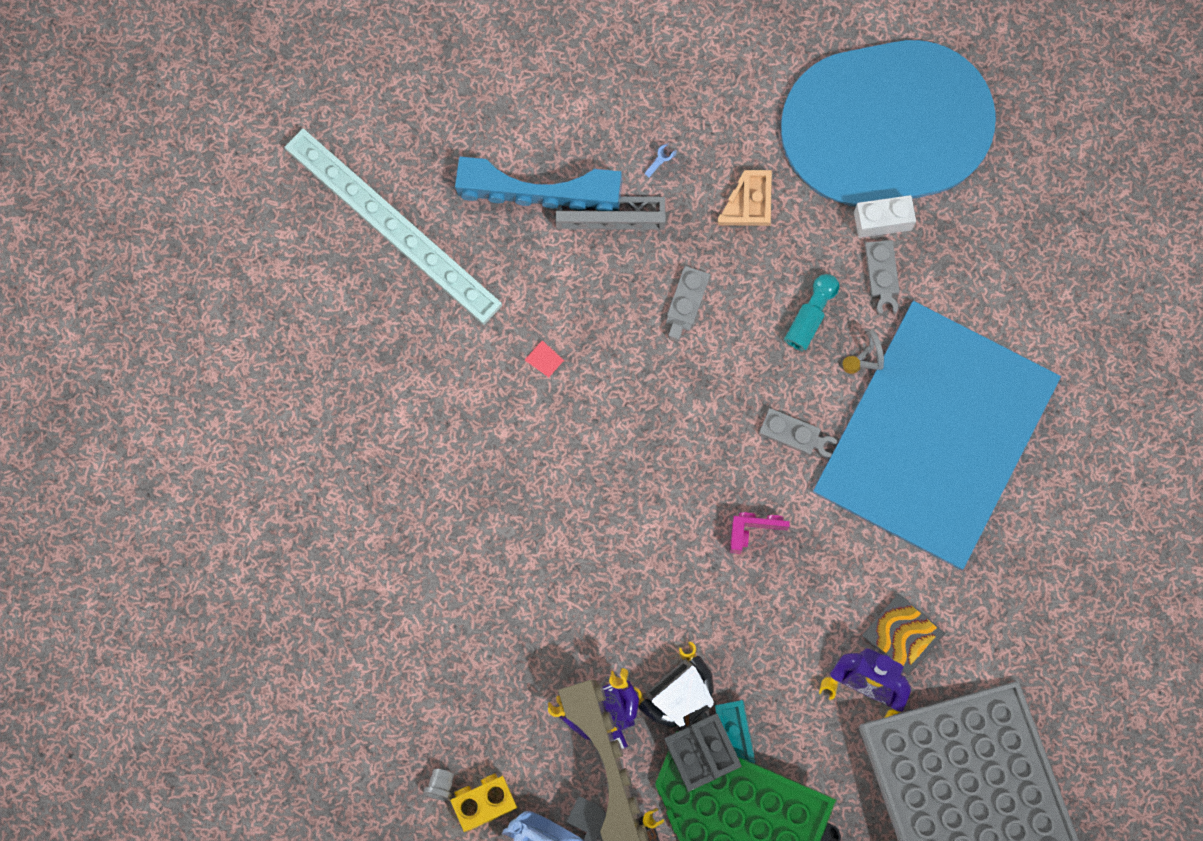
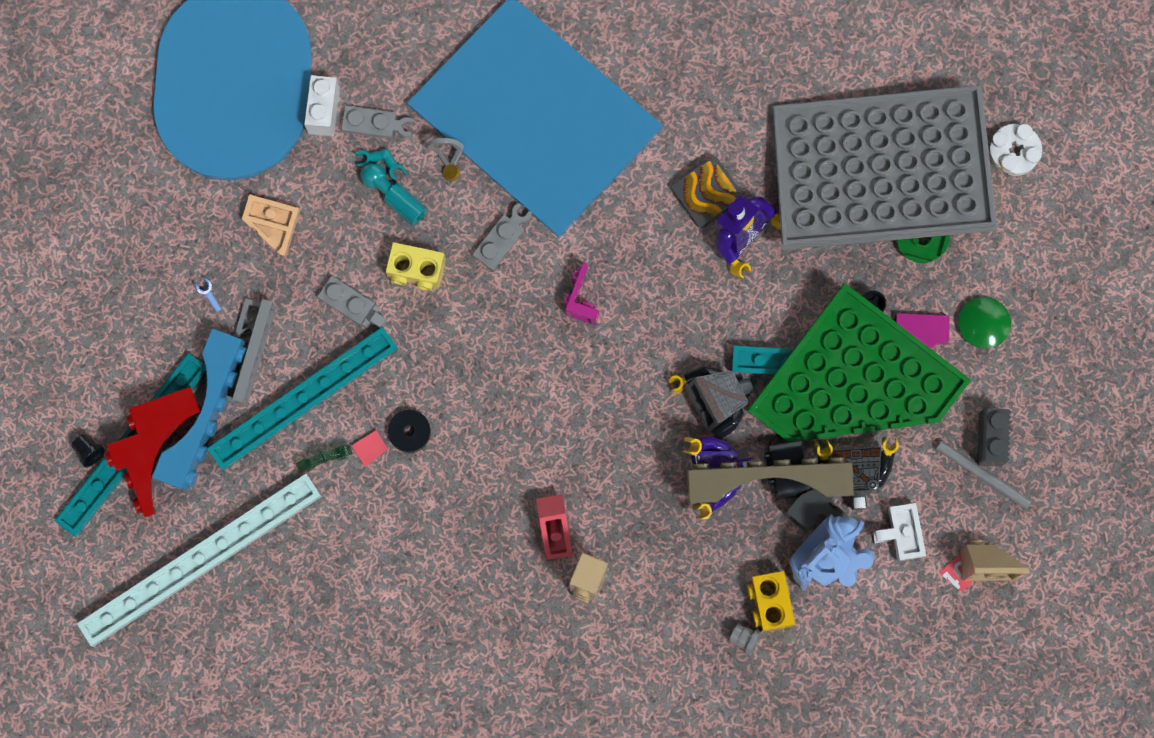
camera: 75 degrees left, 0 degrees up
(458, 606) = (588, 578): none -> tan brick
(473, 90) = (87, 450): none -> black piece
(490, 130) = (105, 478): none -> teal tile
(508, 561) = (554, 527): none -> coral slope
(511, 143) = (138, 453): none -> red arch
(522, 316) = (322, 457): none -> clear green arm
(564, 382) = (397, 429): none -> black piece
(577, 281) = (302, 399): none -> teal plate
(641, 785) = (783, 487): none -> black brick
(702, 752) = (774, 391): dark grey slope -> none
(747, 354) = (418, 259): none -> light yellow brick
(851, 292) = (383, 155): none -> teal arm

